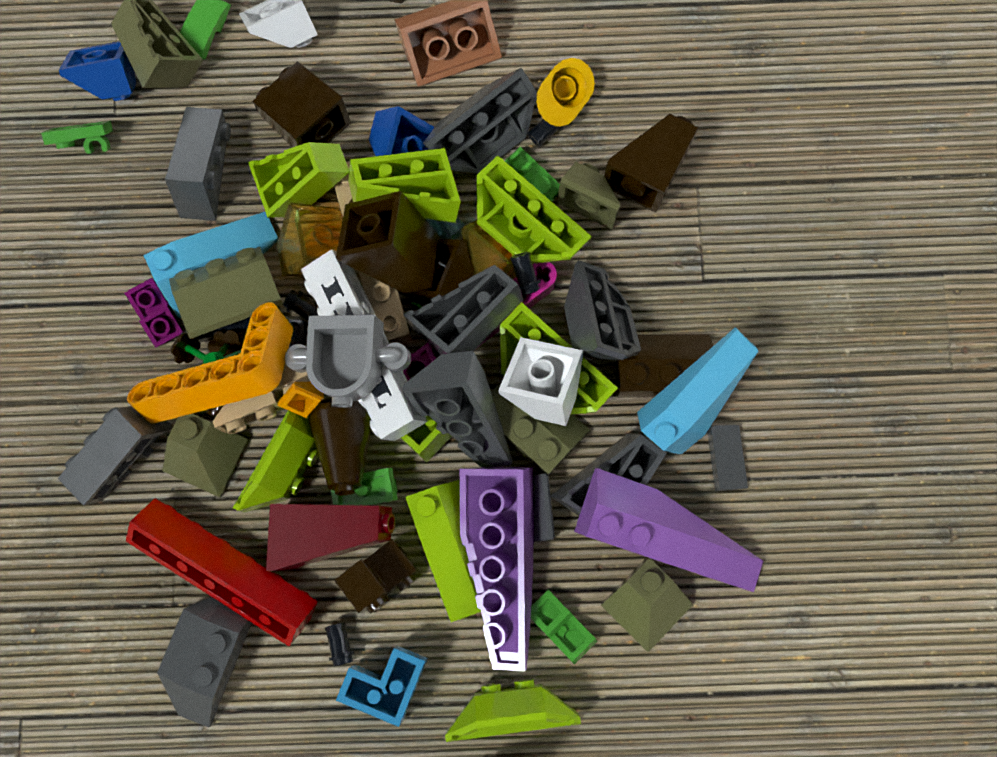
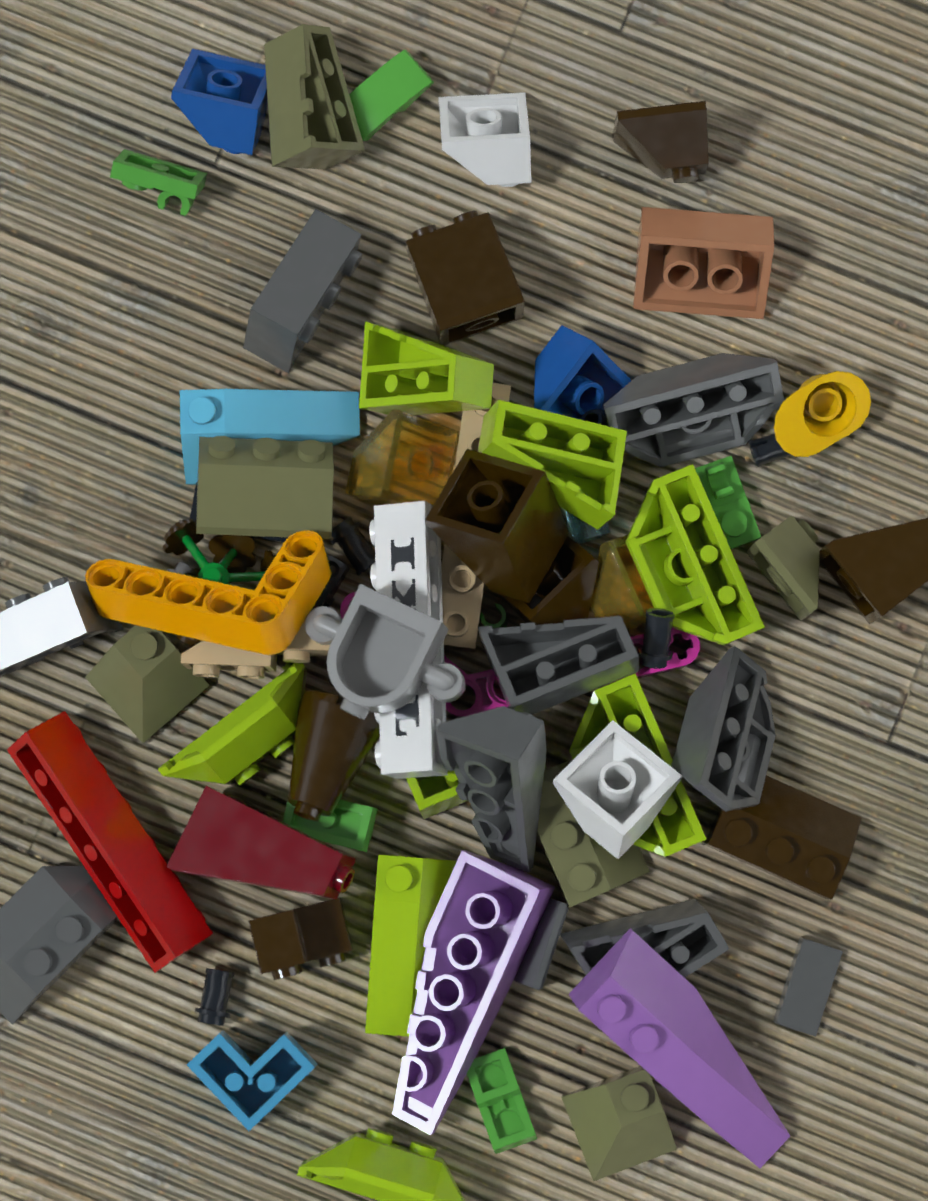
camera: 20 degrees right, 5 degrees up
(154, 312) = (159, 463): magenta slope -> none
(301, 398) = (304, 675): light orange slope -> none
(694, 399) = (798, 896): medium azure wedge -> none

